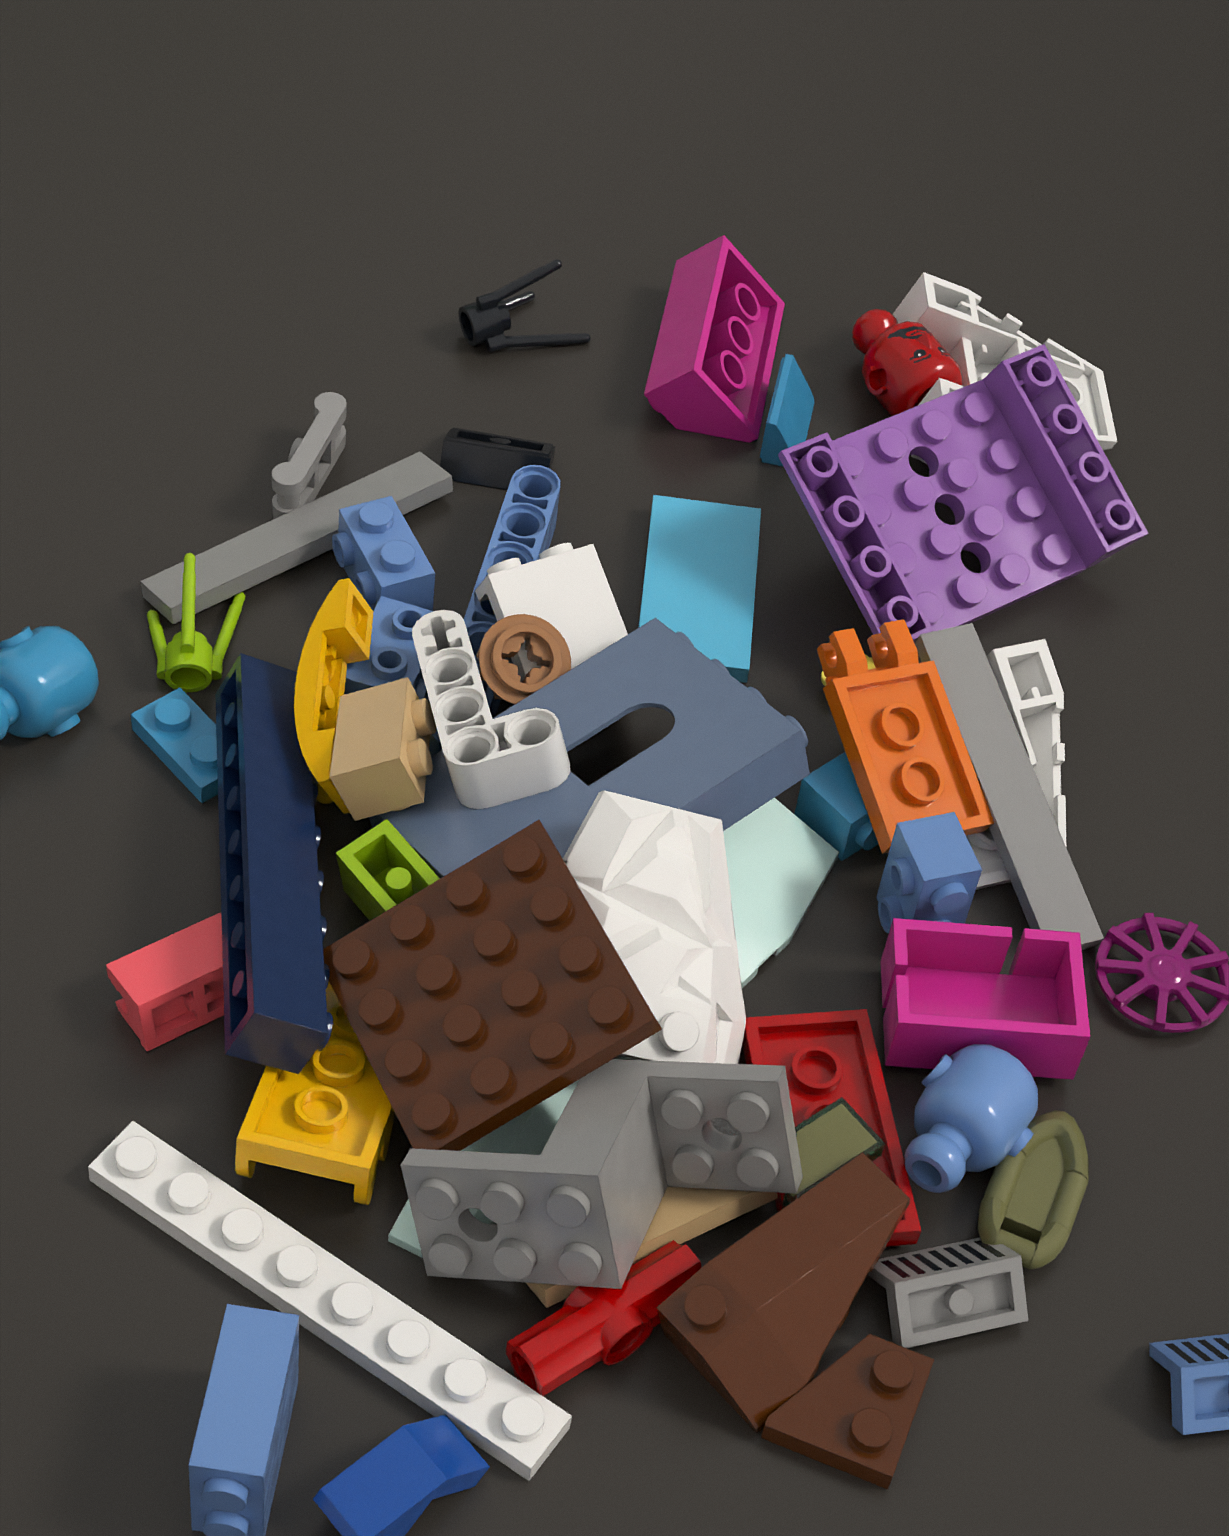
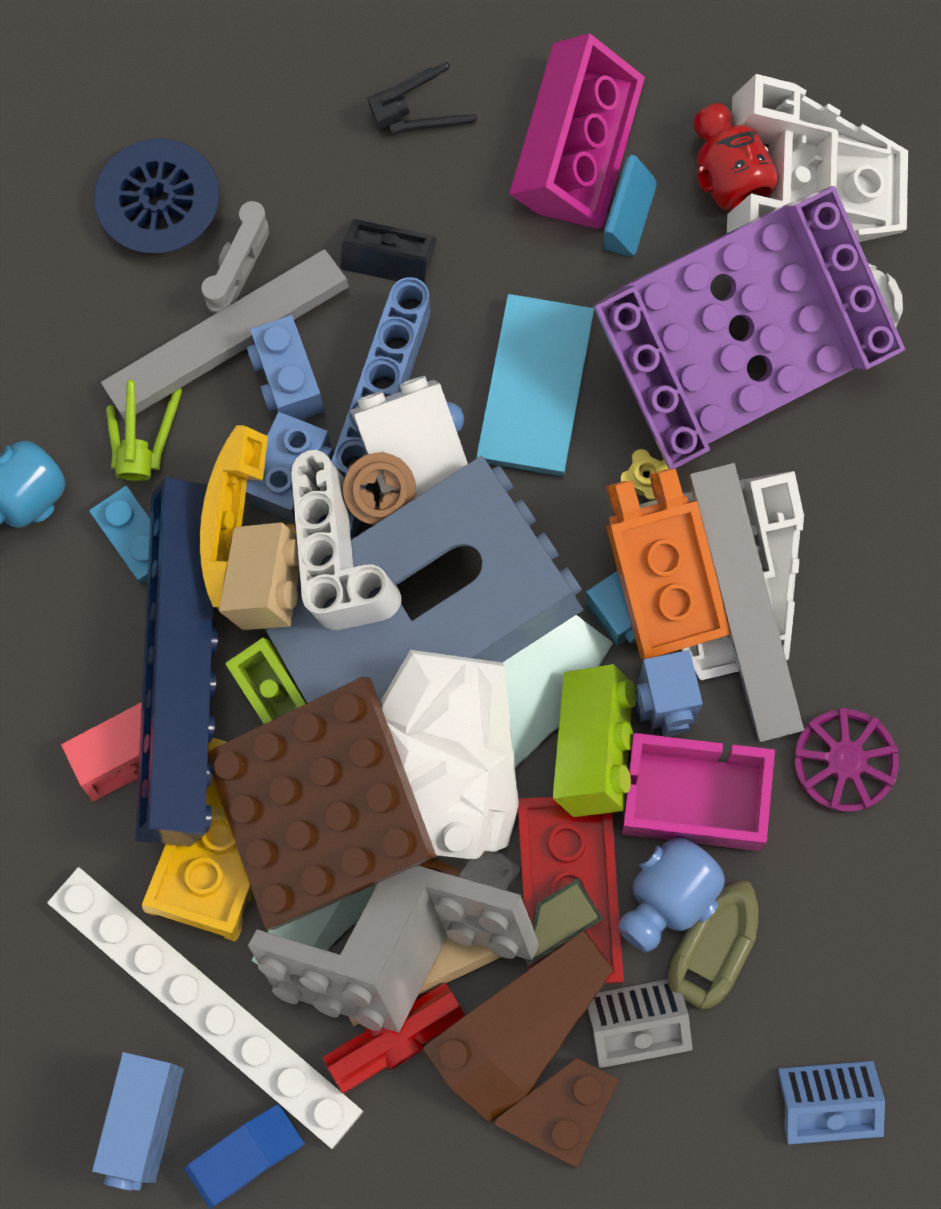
camera: 15 degrees right, 25 degrees up
(170, 394) = (139, 159): none -> dark blue piece
(841, 938) = (594, 741): none -> lime brick

